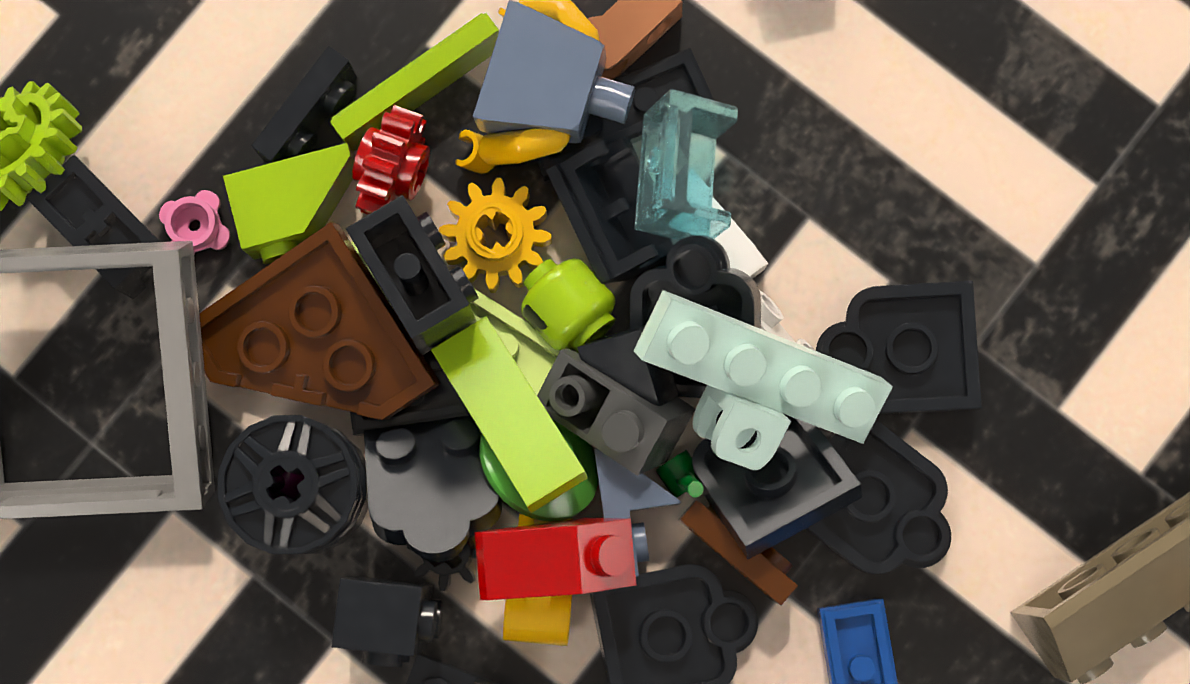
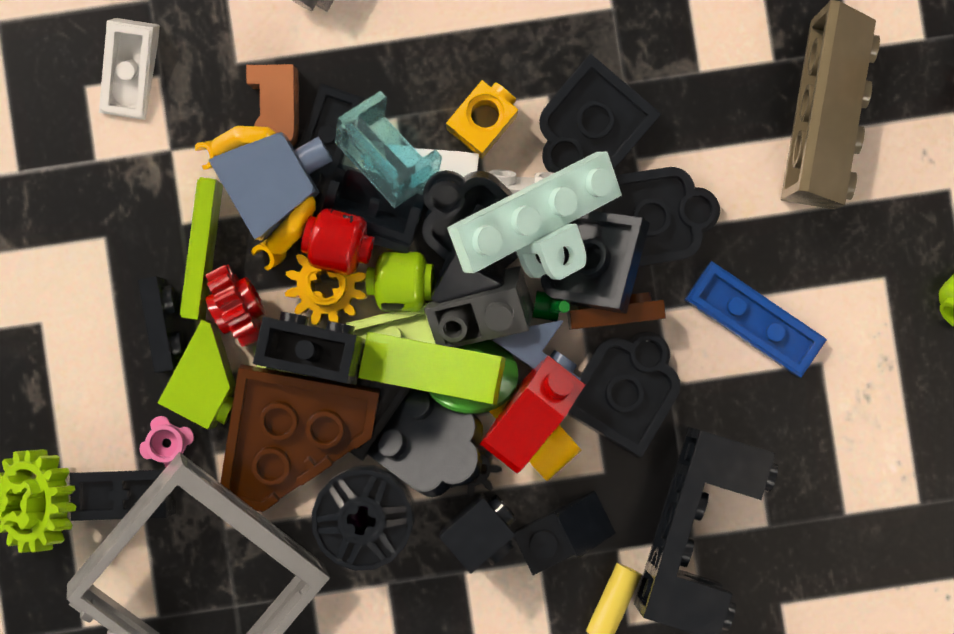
camera: 50 degrees left, 5 degrees up
(546, 201) = (337, 241): none -> red head
(784, 251) = (478, 138): none -> yellow brick

